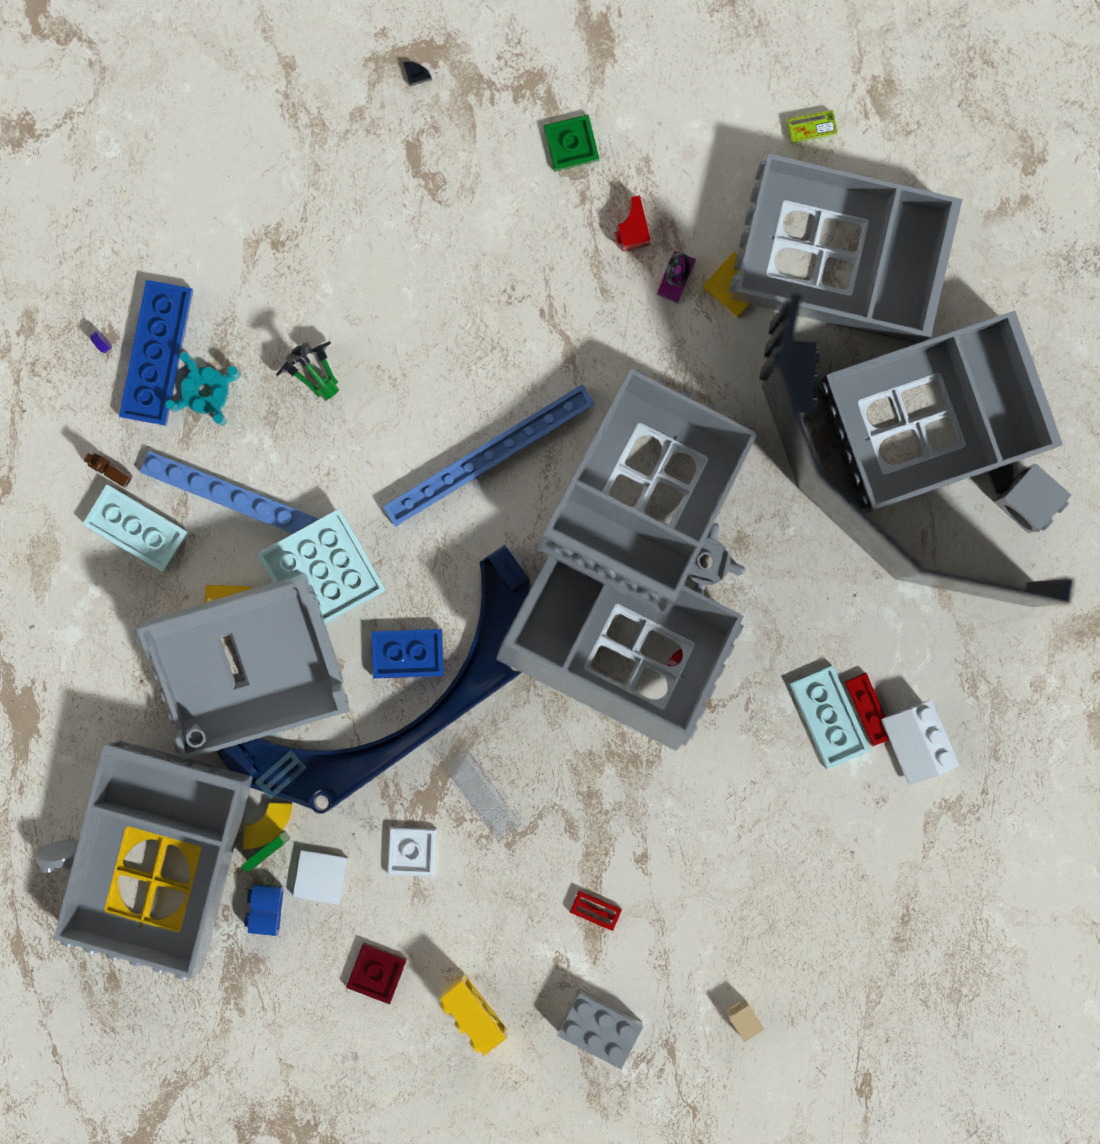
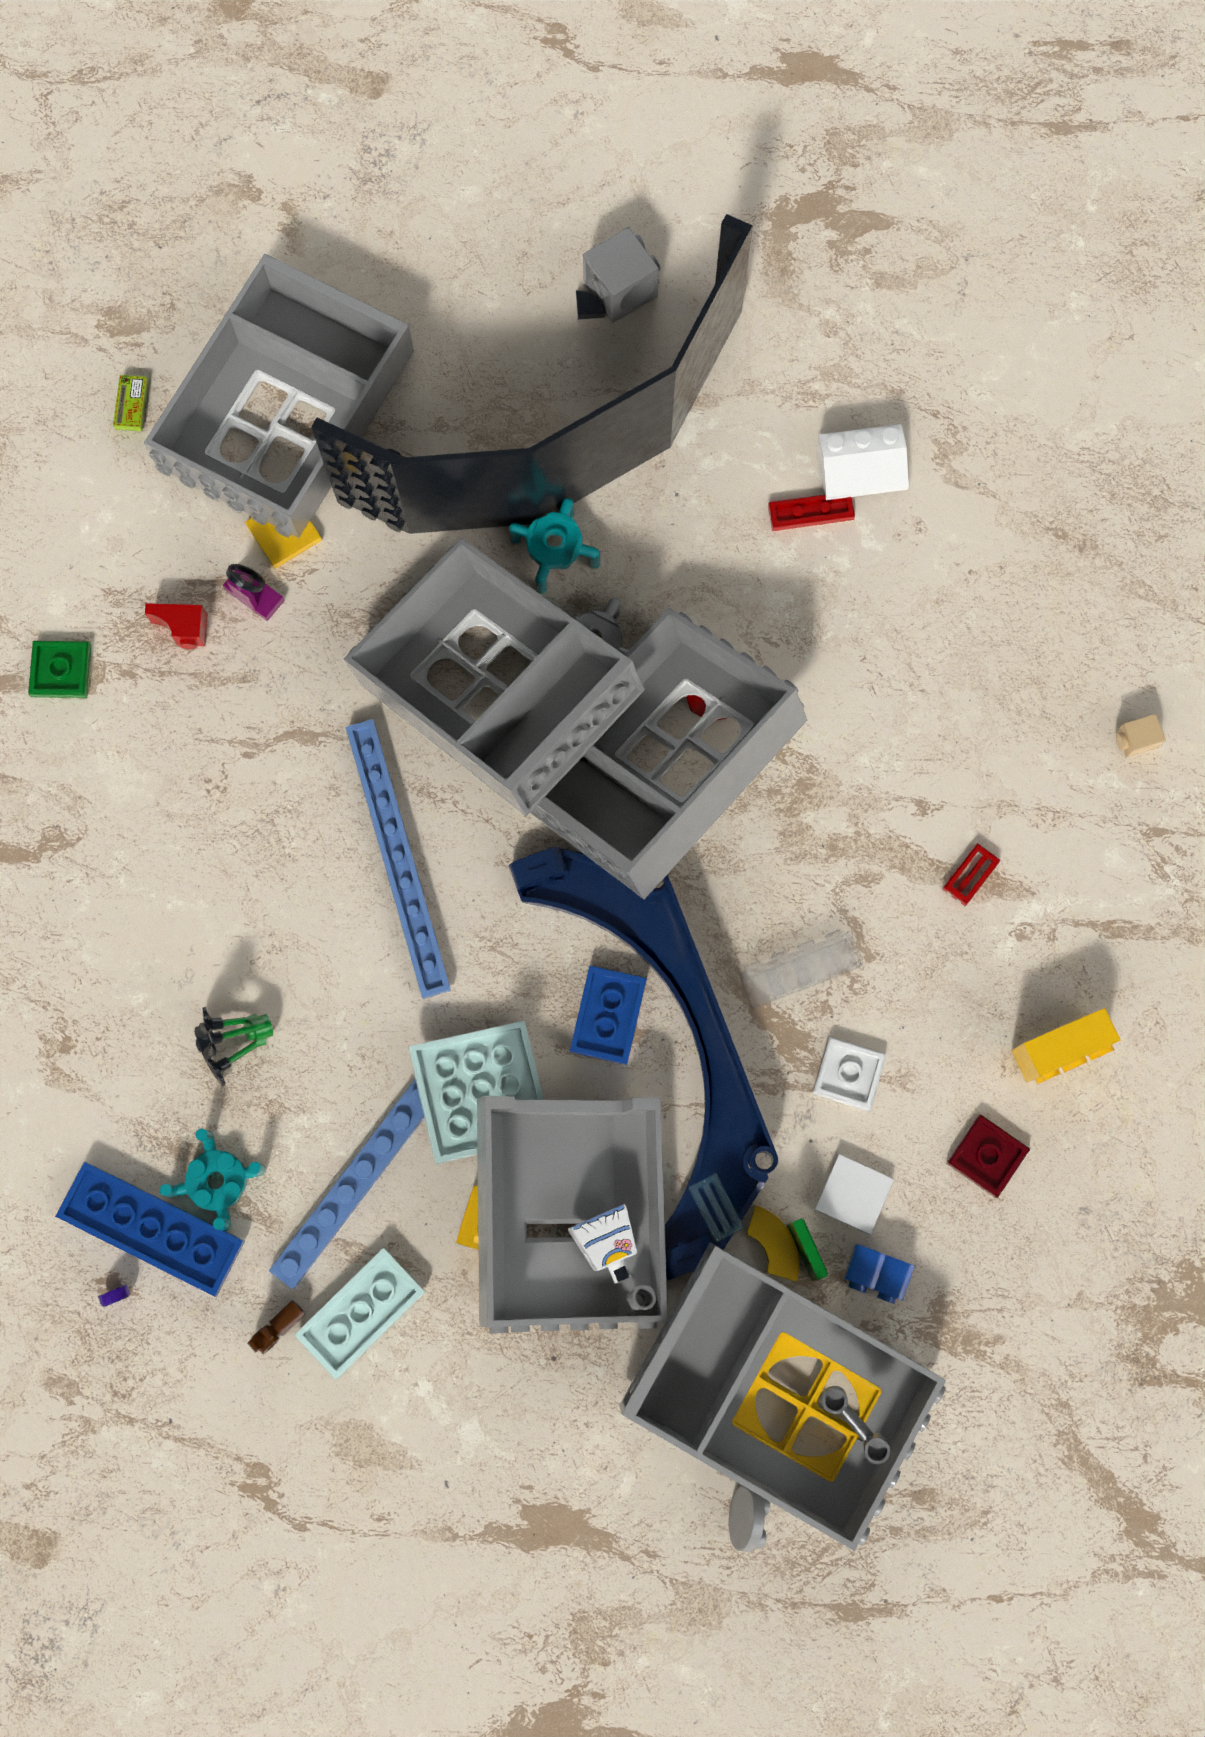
camera: 75 degrees left, 10 degrees down
(129, 937) = (875, 1445): none -> flat silver bar
(230, 699) = (607, 1241): none -> white torso
(600, 1029) = (1114, 903): light grey brick -> none
(768, 514) = (554, 557): none -> teal plate
(829, 716) = (808, 555): light aqua tile -> none
(987, 394) = (493, 291): light grey panel -> none

